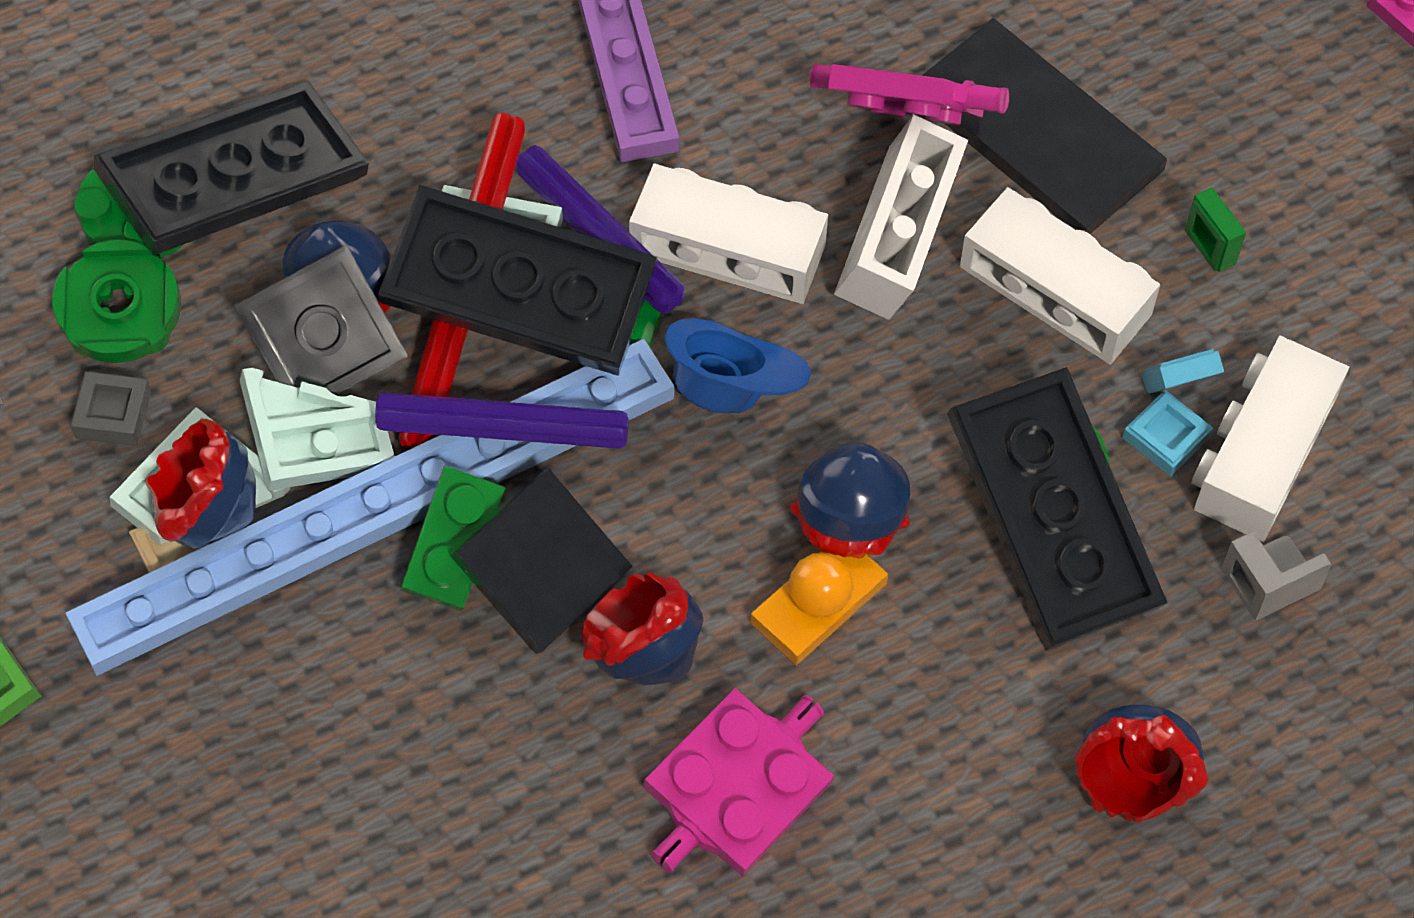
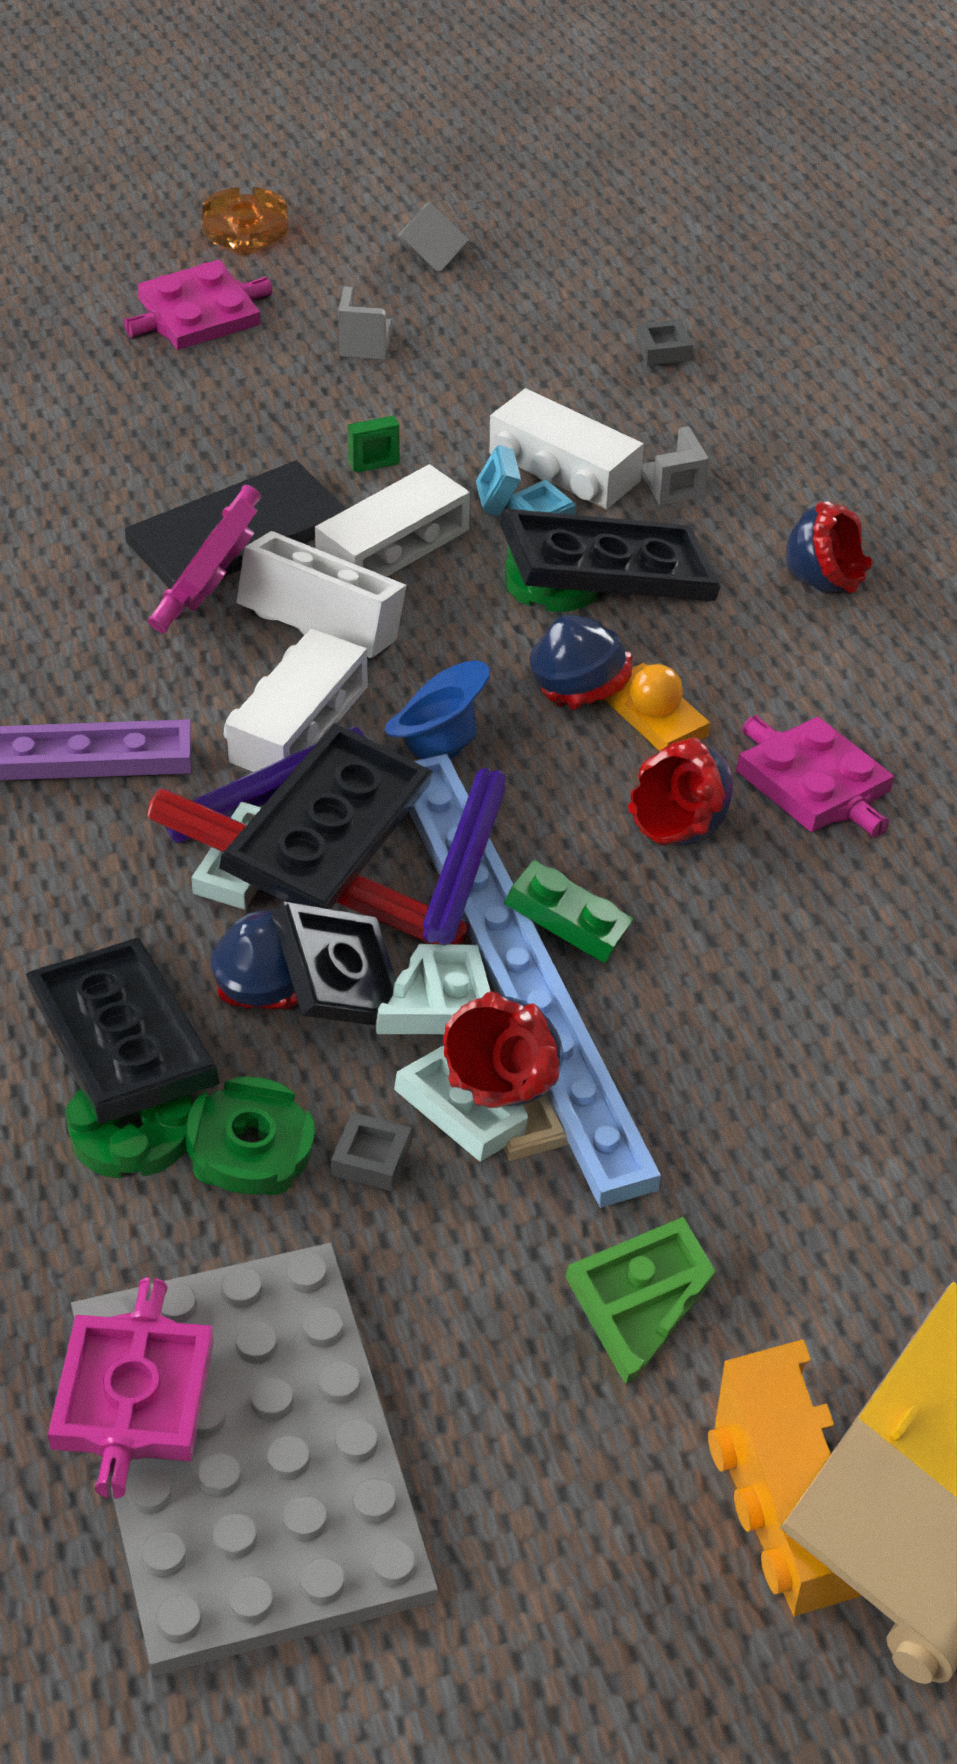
camera: 80 degrees left, 15 degrees down
(541, 561) = (603, 853): black tile -> none

